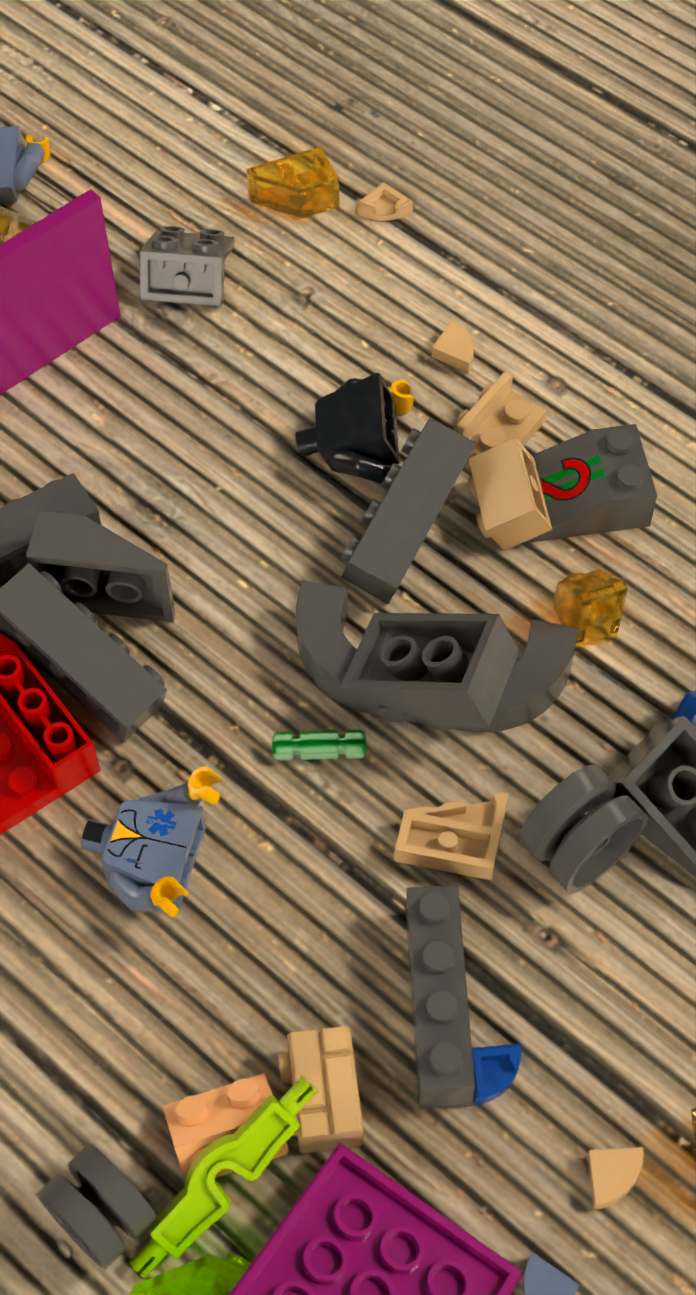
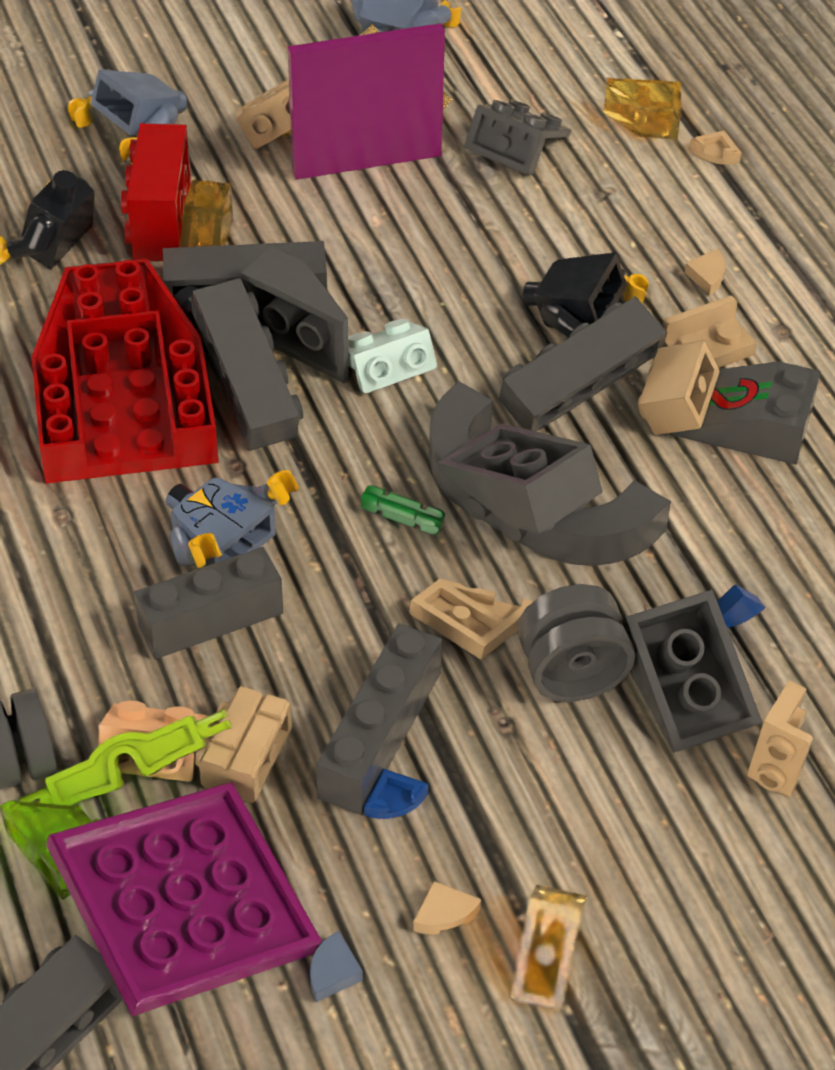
camera: 25 degrees right, 10 degrees down
(195, 945) = (209, 602): none -> dark grey brick
(208, 571) = (391, 354): none -> light aqua bracket
(591, 603) = (693, 497): clear yellow slope -> none

